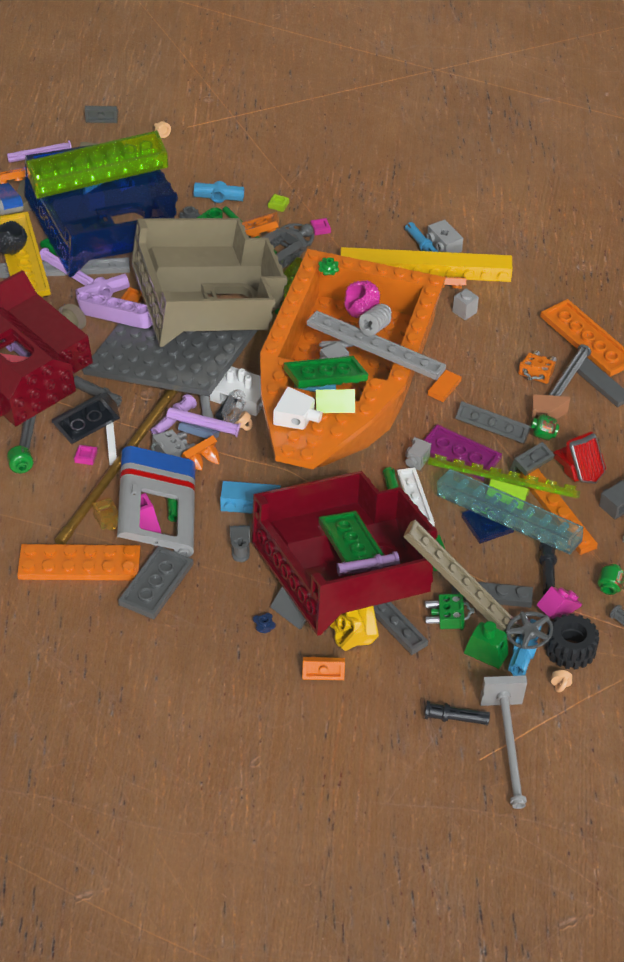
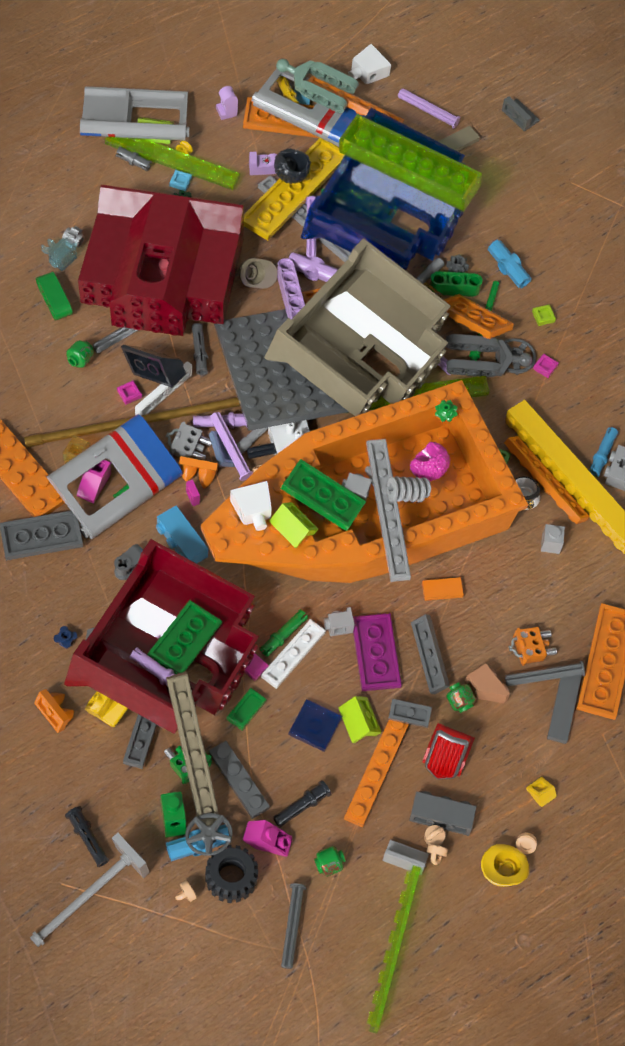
camera: 45 degrees right, 15 degrees up
(163, 129) = (544, 168): light nougat tile -> none
(218, 469) = (192, 493): none -> dark pink tile
(230, 404) = (261, 453): clear beam -> none
(510, 511) = (329, 735): clear light blue brick -> none
(511, 477) = (367, 706): clear neon green plate -> none

